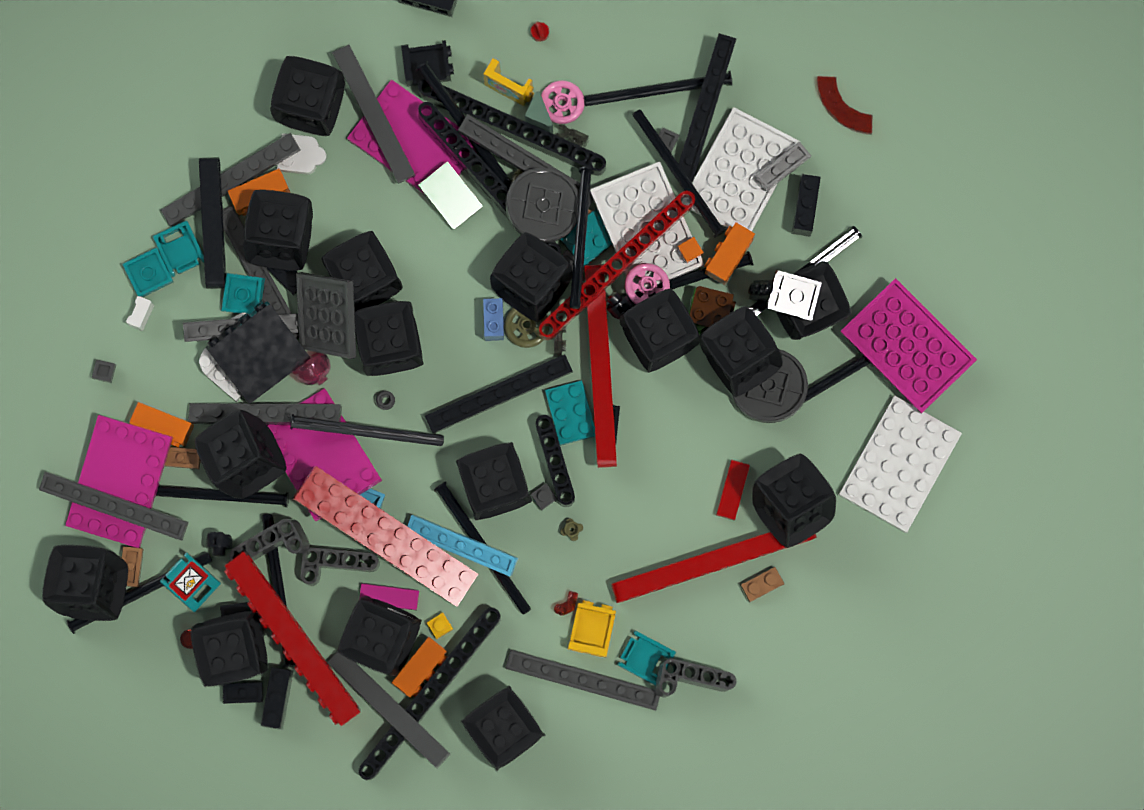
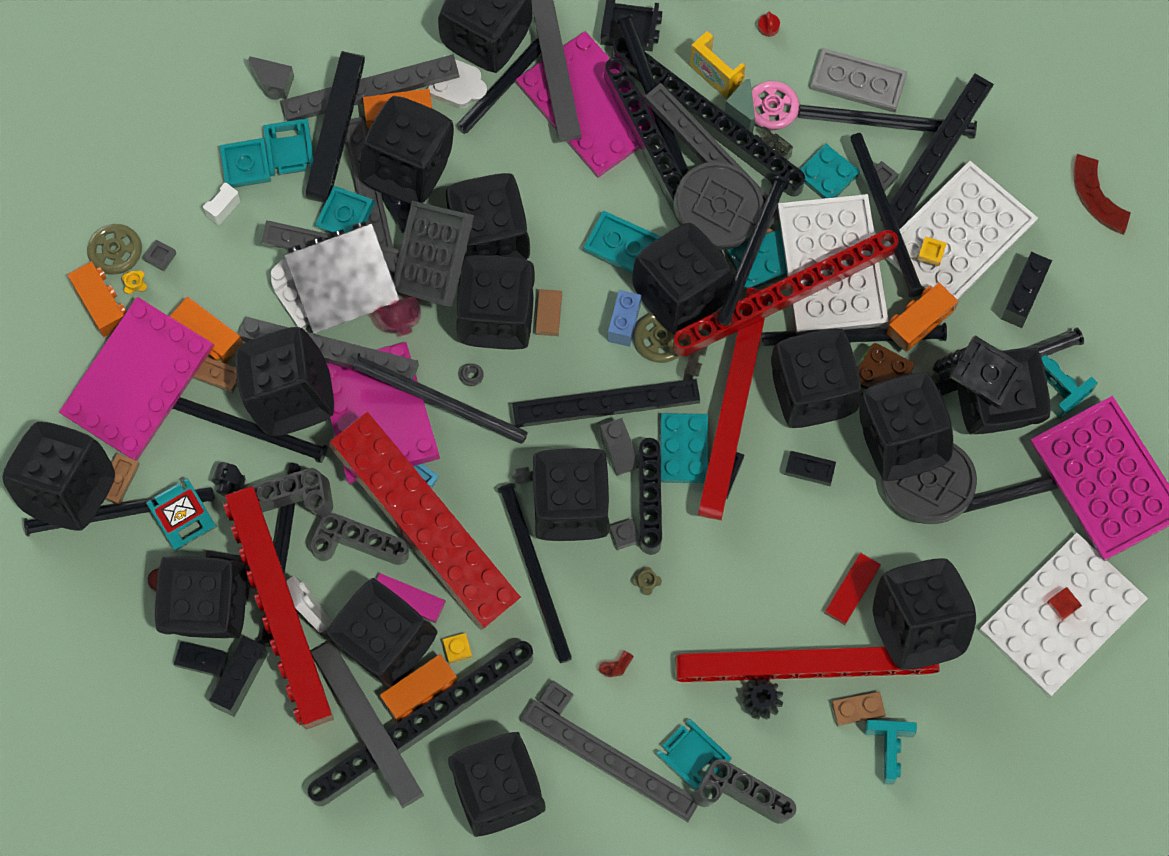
camera: 15 degrees right, 10 degrees down
(49, 370) = (119, 265): none -> olive plate
(66, 422) = (97, 297): none -> orange brick
(85, 399) = (132, 276): none -> yellow plate
(113, 506) = (121, 403): dark grey tile -> none
(148, 193) = (272, 77): none -> dark grey slope
(314, 628) = (308, 604): none -> white plate
(336, 148) = (500, 87): none -> black axle
(431, 330) = (548, 312): none -> medium nougat tile
(450, 195) = (614, 169): tile -> none
(450, 472) = (522, 475): none -> dark grey plate
(464, 546) = (516, 563): medium azure plate -> none
(473, 255) = (618, 241): none -> teal plate
(519, 427) = (618, 446): none -> dark grey slope
(528, 643) = (556, 697): none -> dark grey plate
(592, 629) = (638, 703): yellow panel -> none
(618, 304) = (773, 335): black piece -> none
(622, 148) = (829, 173): none -> teal plate
(625, 60) = (858, 80): none -> light grey tile
(639, 270) = (811, 306): bright pink plate -> none
(674, 402) = (810, 468): none -> black plate
(681, 594) = (754, 694): none -> black gear
(690, 249) = (876, 300): orange tile -> none
(723, 195) = (932, 251): none -> yellow plate
(783, 166) = (1010, 239): light grey tile -> none
(795, 606) = (892, 744): none -> teal bracket
(855, 276) = (1066, 386): none -> teal bracket
(899, 457) = (1064, 603): none -> clear red tile

